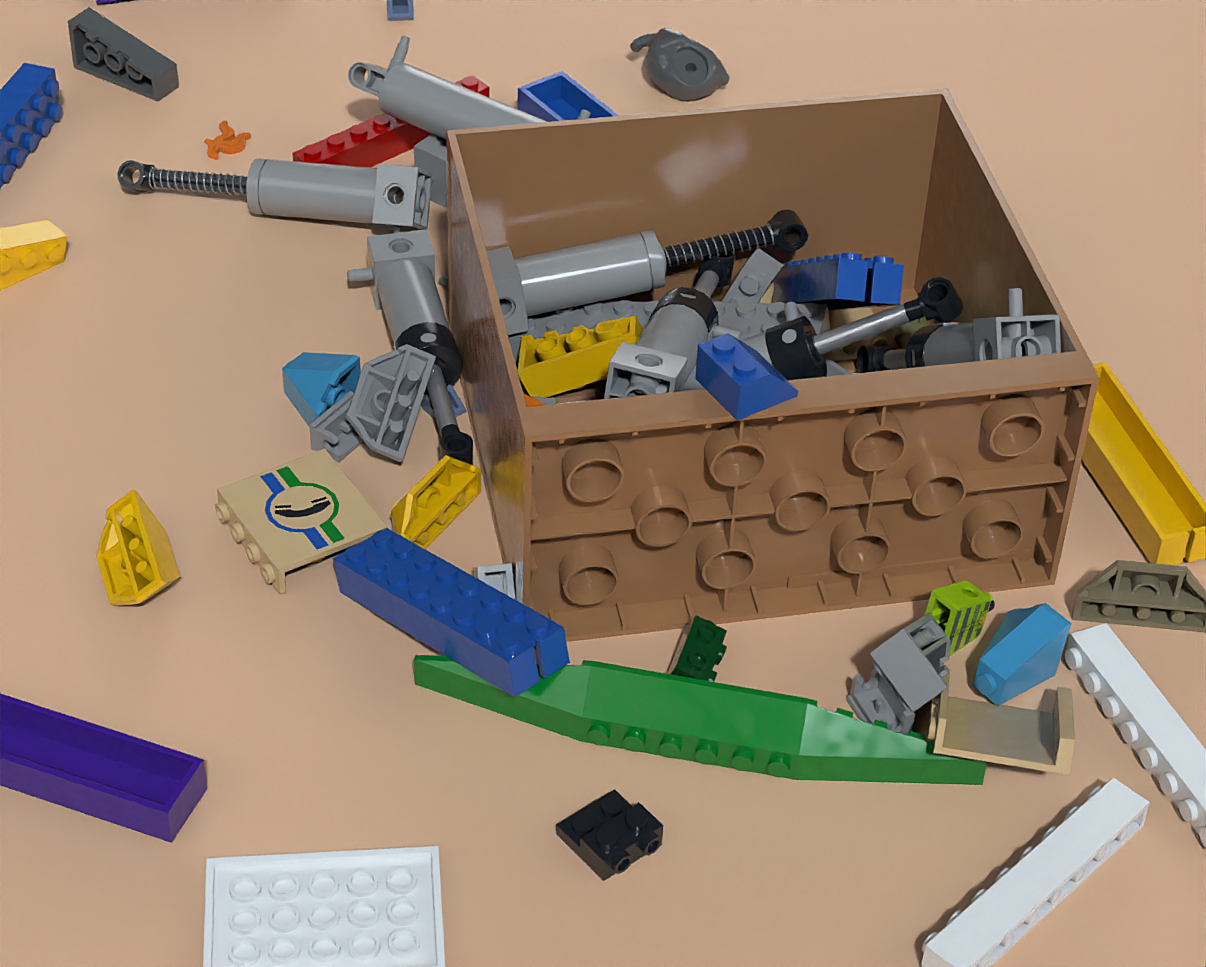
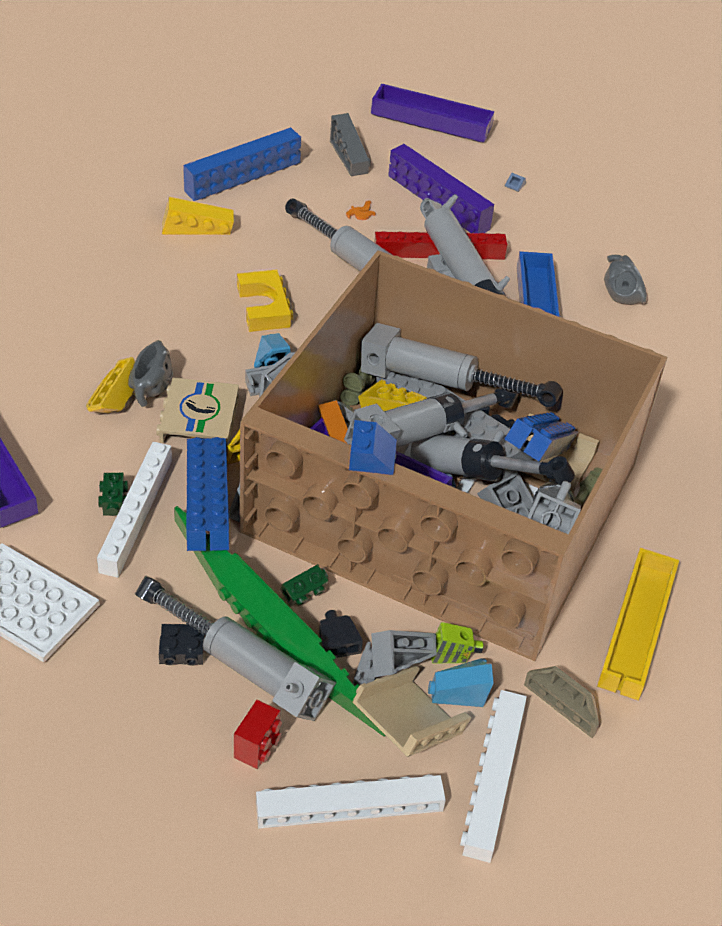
camera: 35 degrees right, 5 degrees up
(177, 496) = (151, 372): none -> dark grey piece
(208, 298) = (270, 285): none -> yellow arch
(296, 696) = (112, 492): none -> dark green brick
(301, 53) = (434, 183): none -> dark purple piece
(354, 699) = (134, 510): none -> white brick
(724, 783) = (292, 684): none -> light grey piece
(753, 279) = (514, 409): light grey brick -> none
(806, 681) = (339, 635): none -> black torso
(849, 875) = (257, 734): none -> red brick

